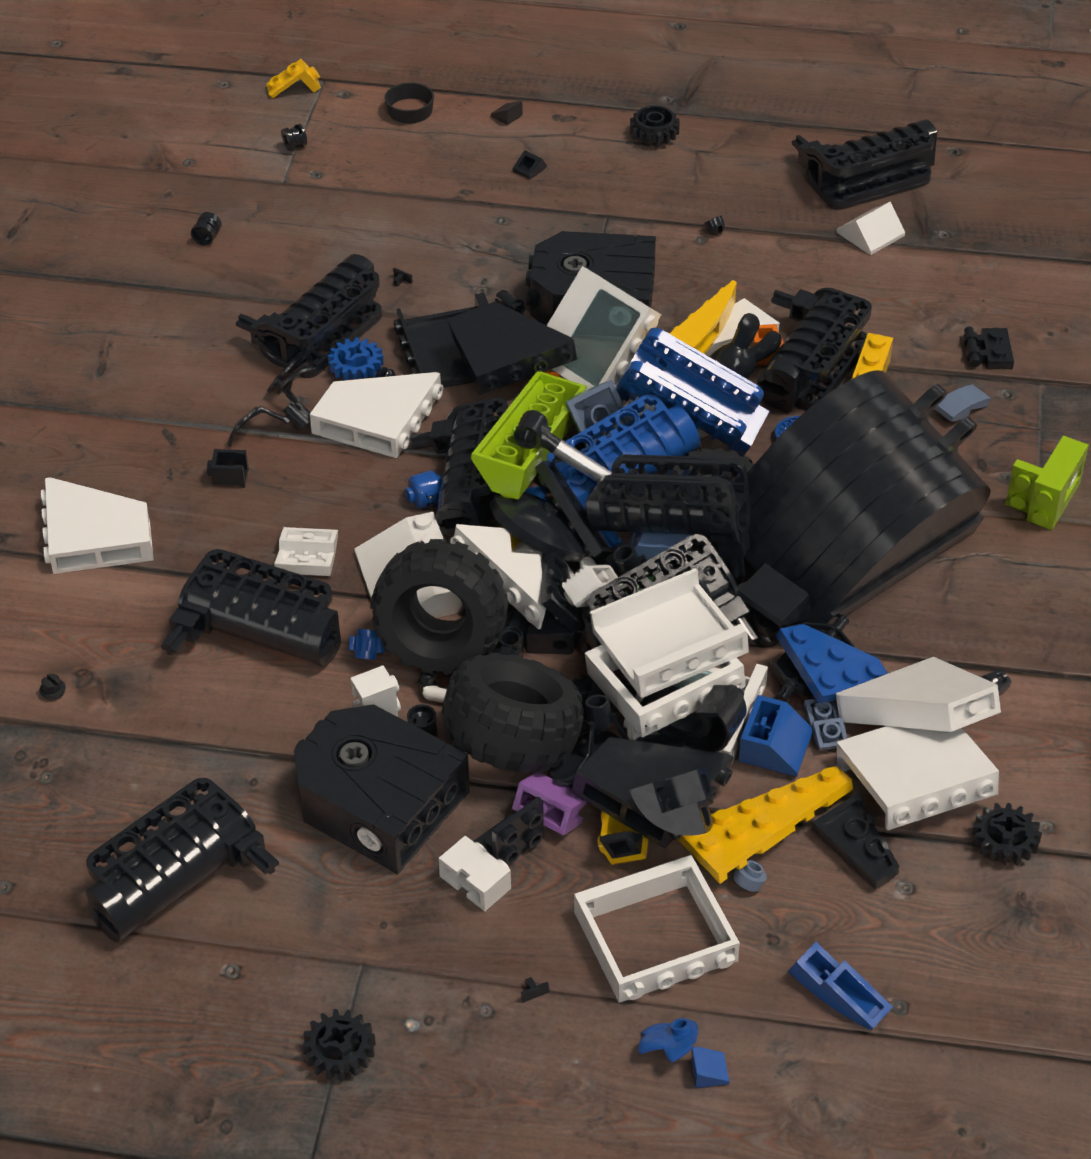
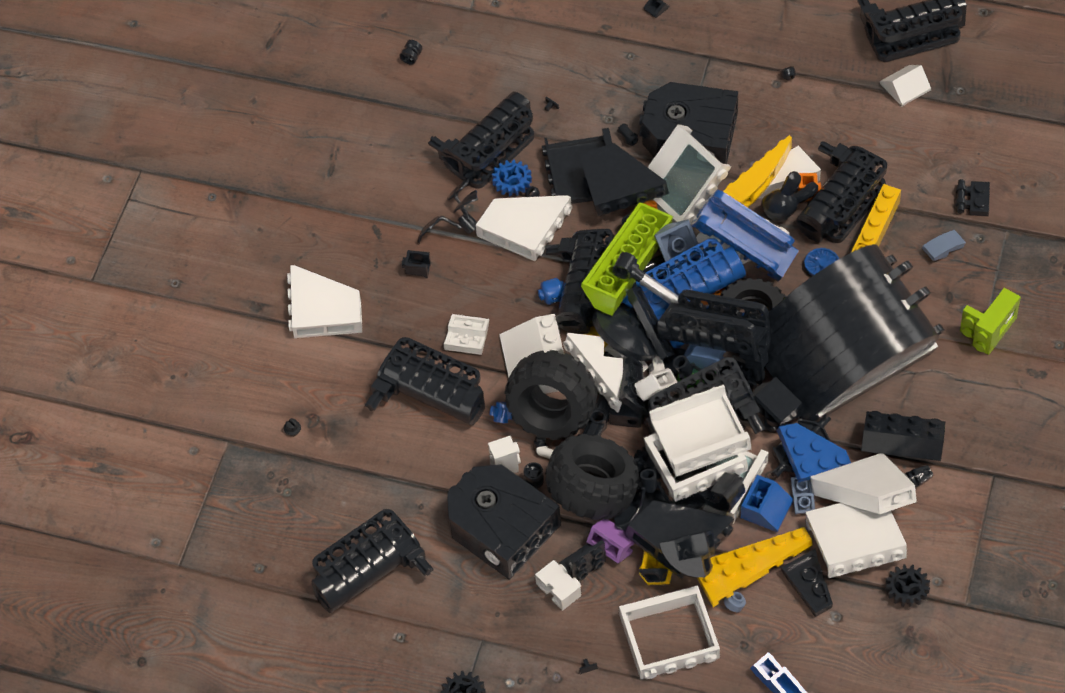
camera: 10 degrees right, 10 degrees up
(960, 631) = (903, 435): none -> black brick

